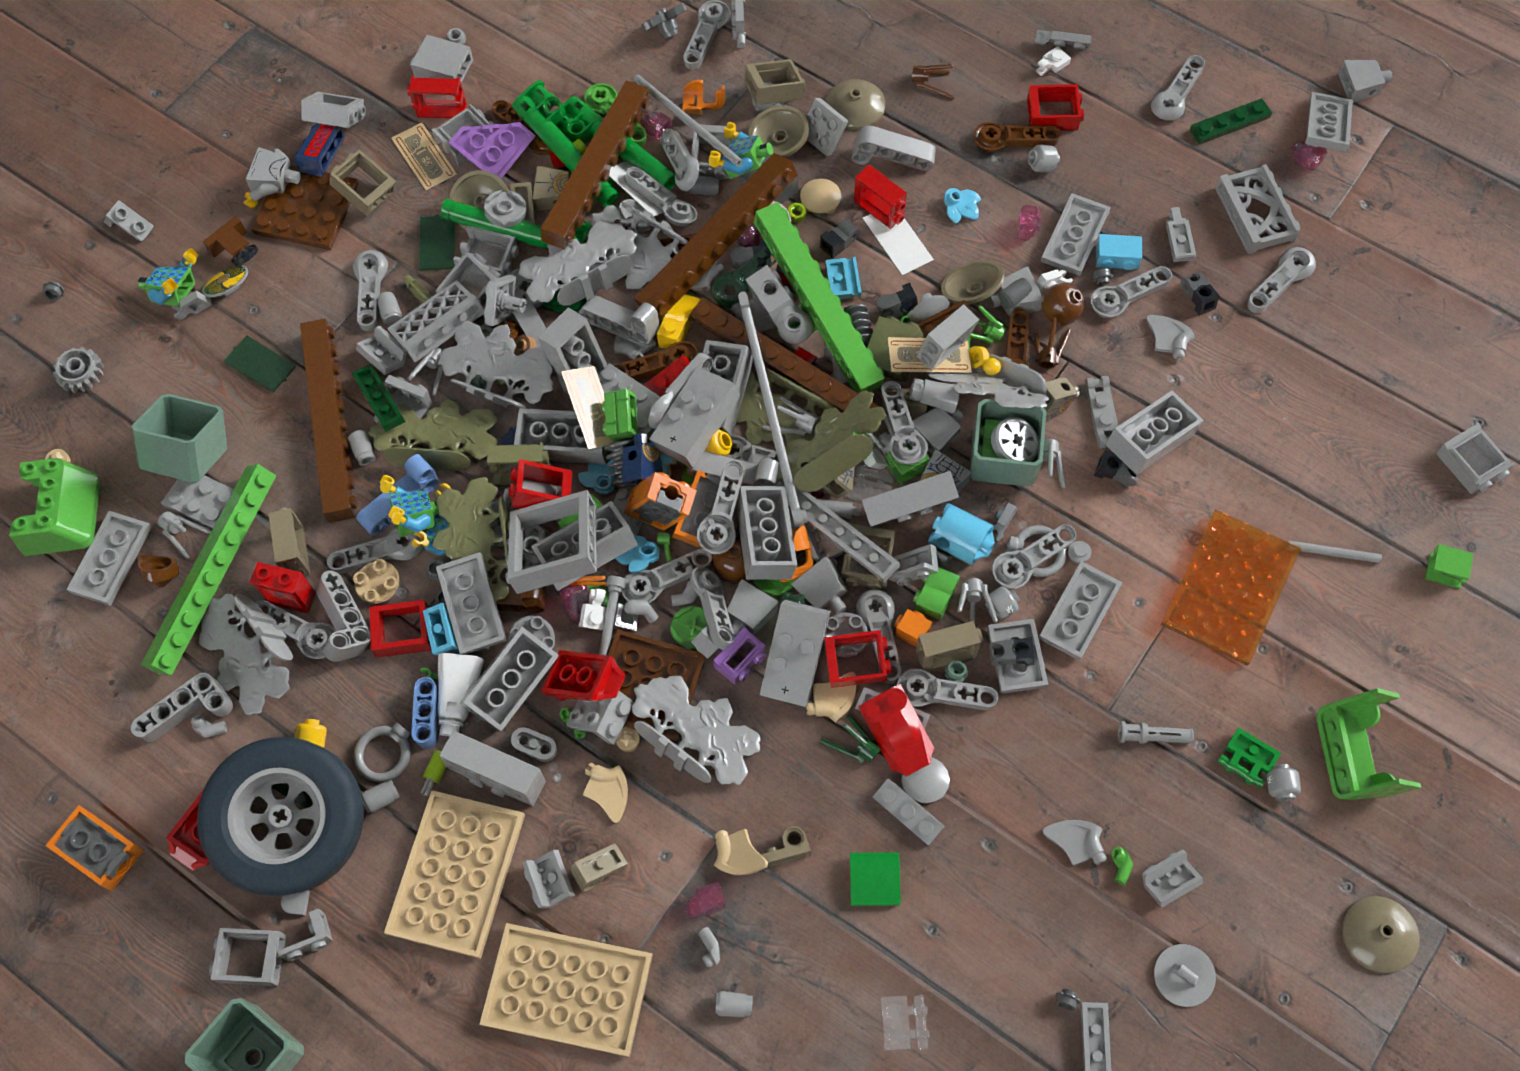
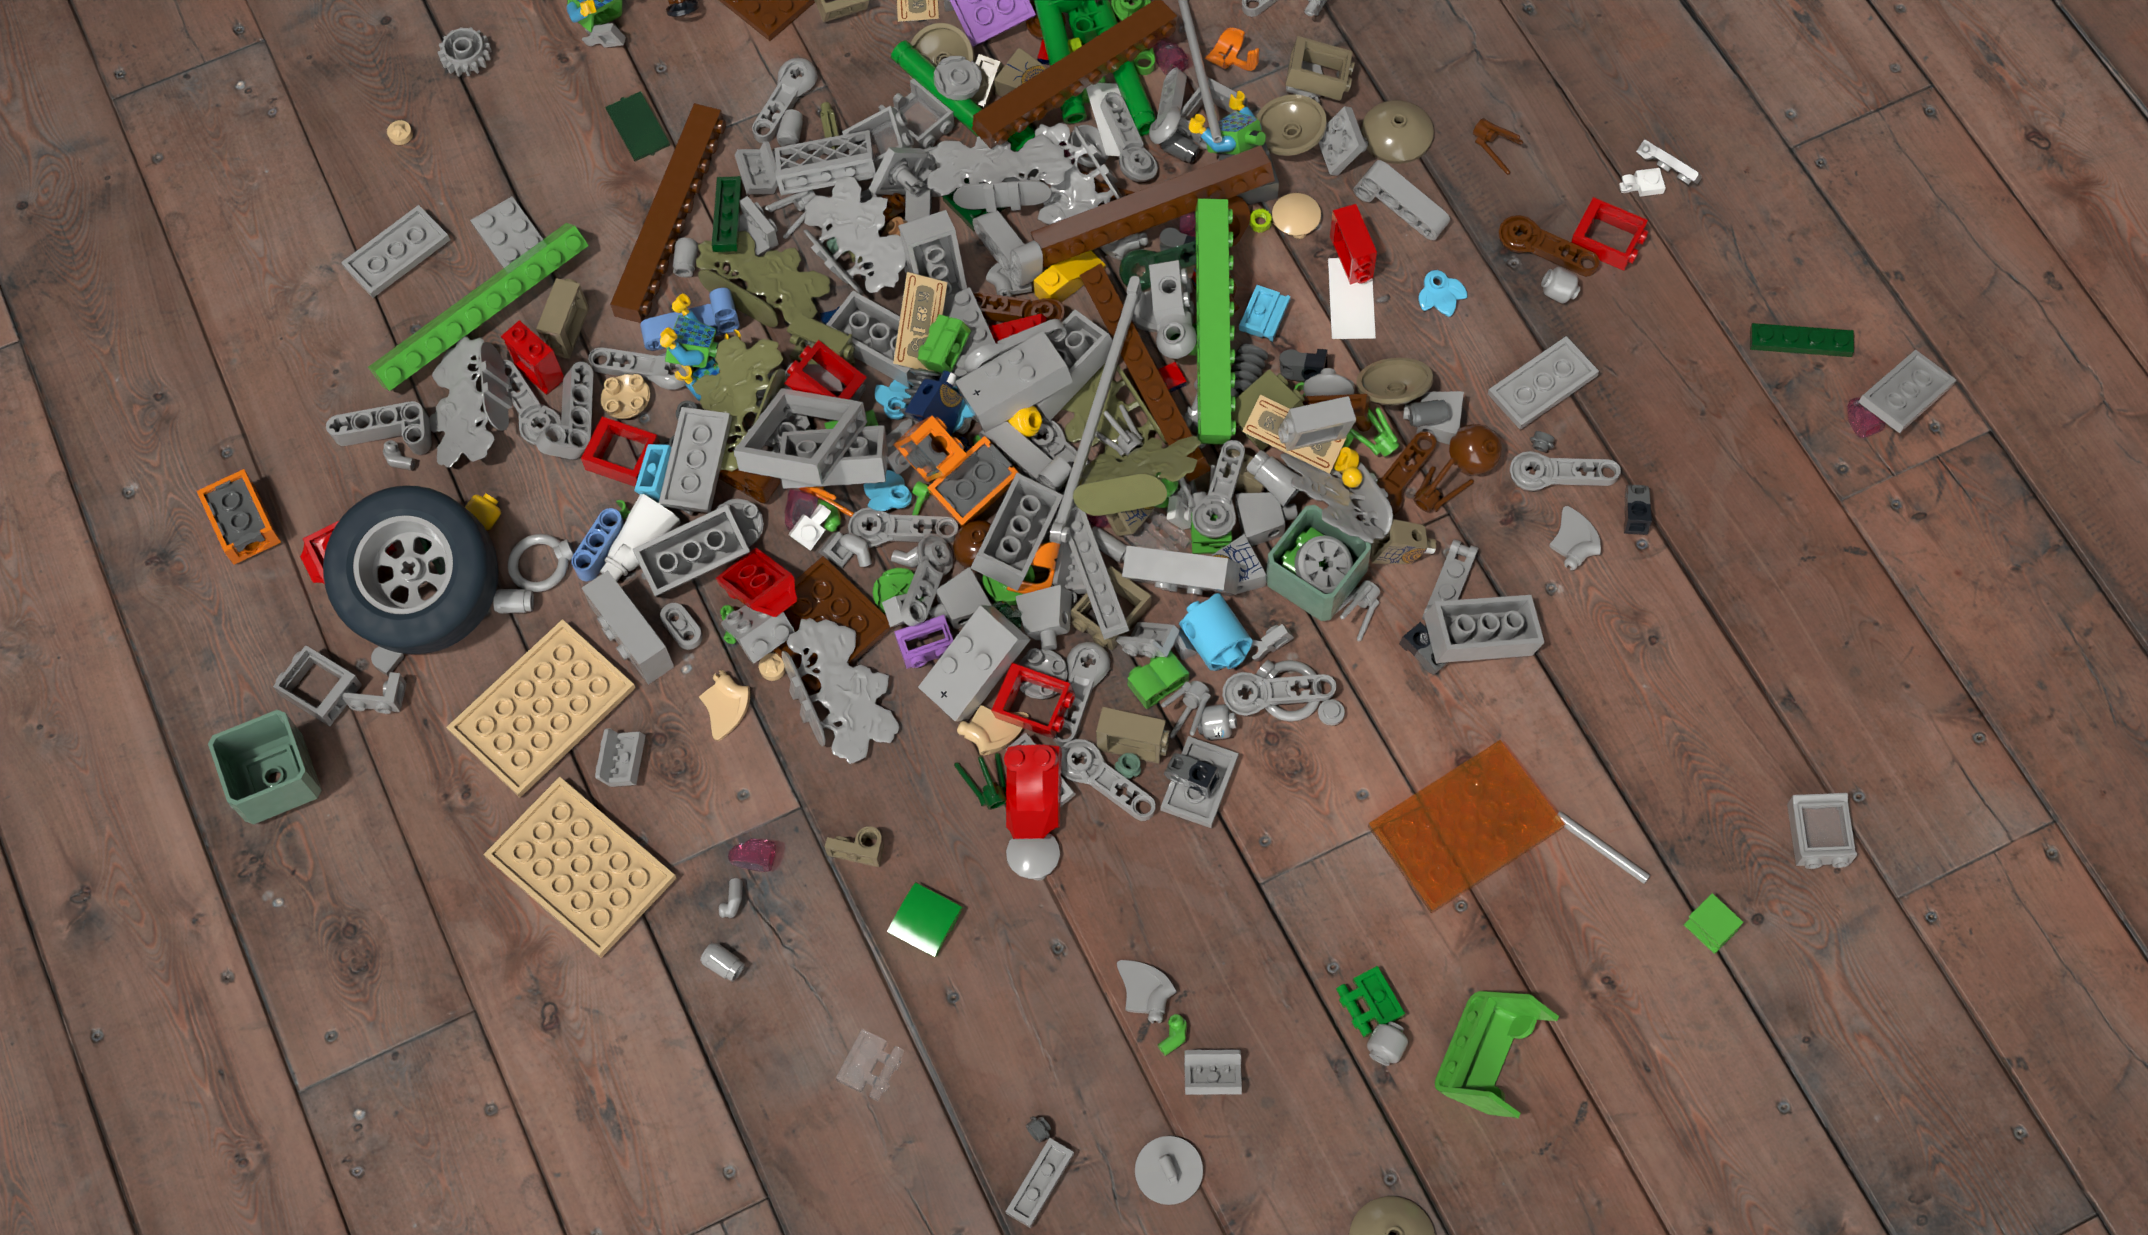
camera: 30 degrees right, 0 degrees up
(63, 509) = (378, 181): bright green windscreen -> none
(157, 569) = (432, 283): reddish brown piece -> none
(173, 524) = (469, 247): light grey plant -> none
(179, 437) = (517, 164): sand green plate -> none
(225, 281) = (648, 27): shield -> none
(433, 772) = (573, 605): lime piece -> none
(436, 243) = (875, 83): clear green piece -> none
(595, 867) = (665, 769): plate -> none
(615, 586) = (844, 512): light grey piece -> none
(721, 514) = (983, 491): light grey beam -> none
(737, 854) = (808, 826): tan arm -> none
(839, 238) = (1287, 268): leg -> none
(908, 811) = (997, 874): light grey plate -> none
(911, 626) = (1111, 696): orange brick -> none
(1029, 222) = (1499, 346): clear pink rock -> none
(1052, 278) = (1484, 417): white plate -> none
(1080, 610) = (1293, 770): light grey plate -> none
(1119, 251) = (1576, 423): medium azure brick -> none
(1142, 733) = (1275, 923): light grey pin -> none
(1177, 91) = (1763, 279): light grey beam -> none
(1180, 236) = (1656, 439): light grey hinge -> none
(1268, 194) = (1738, 471): light grey fence -> none
(1283, 277) = (1743, 537): light grey beam -> none
(1363, 79) = (1985, 363): light grey torso -> none

